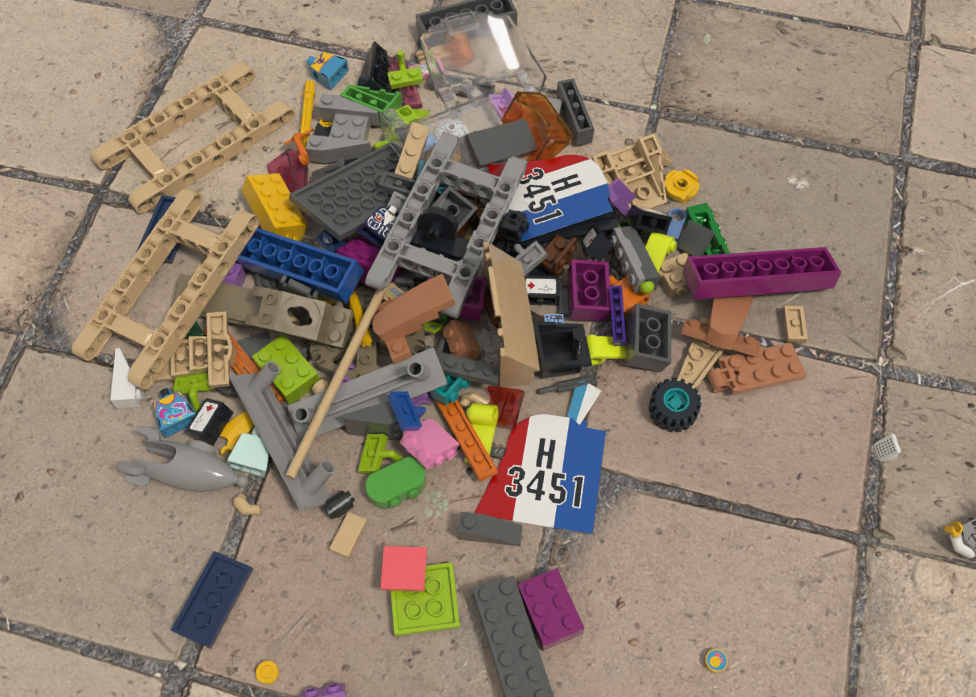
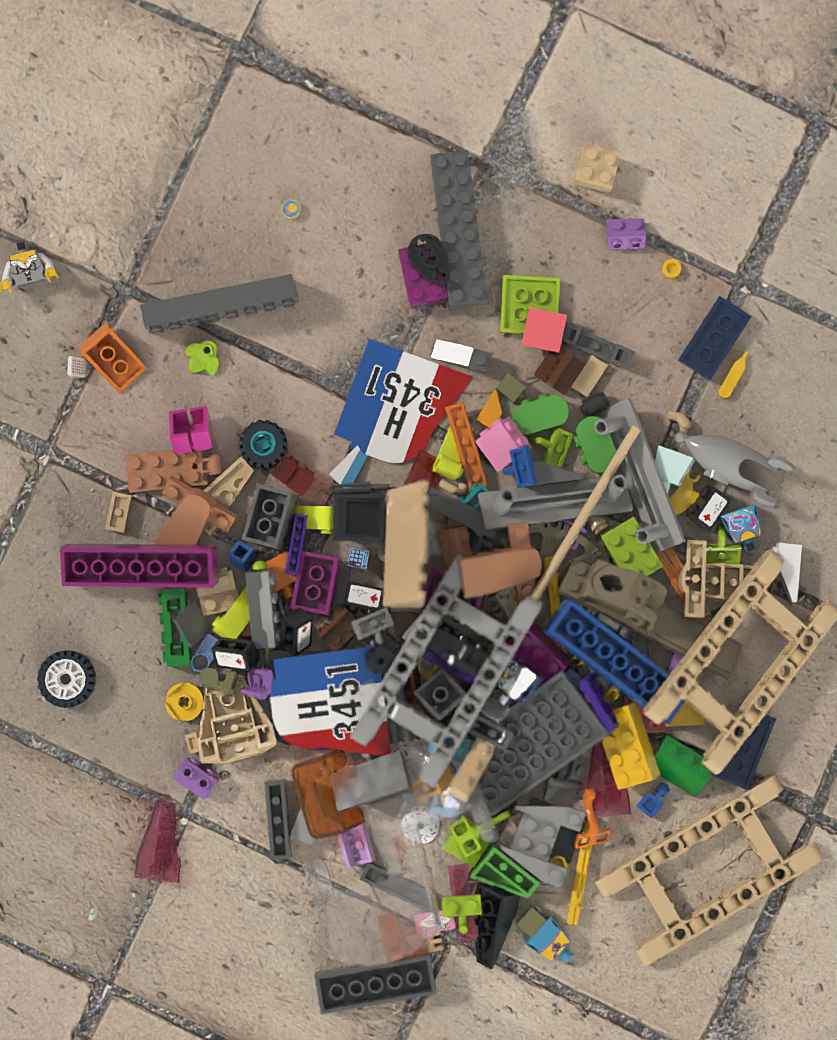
camera: 170 degrees left, 25 degrees up
(190, 562) = (732, 377): none -> yellow piece
(221, 205) = (681, 766): none -> green slope
(248, 169) = (651, 804): none -> blue plate
(300, 221) = (596, 697): none -> dark purple wing
(329, 448) = (595, 448): none -> bright green brick
(342, 567) = (596, 346): none -> dark grey slope
(343, 77) = (531, 920): none -> olive brick
(380, 531) = (560, 370): none -> reddish brown bracket
(430, 505) = (511, 388): none -> olive brick
(448, 480) = (491, 411): none -> light orange tile
(539, 629) = (437, 251): none -> black piece
(635, 385) = (294, 476): none -> clear red piece
(649, 125) = (195, 777): none -> medium lavender brick
(660, 203) = (210, 679): none -> olive leg
(666, 300) = (242, 556): none -> blue brick
(668, 80) = (158, 851): none -> clear pink wedge
(754, 398) = (186, 436): none -> dark pink piece
(761, 482) = (202, 360): none -> lime plate
(763, 533) = (219, 303): none -> dark grey brick
(791, 185) = (51, 681): none -> wheel
(856, 464) = (112, 357): none -> orange slope

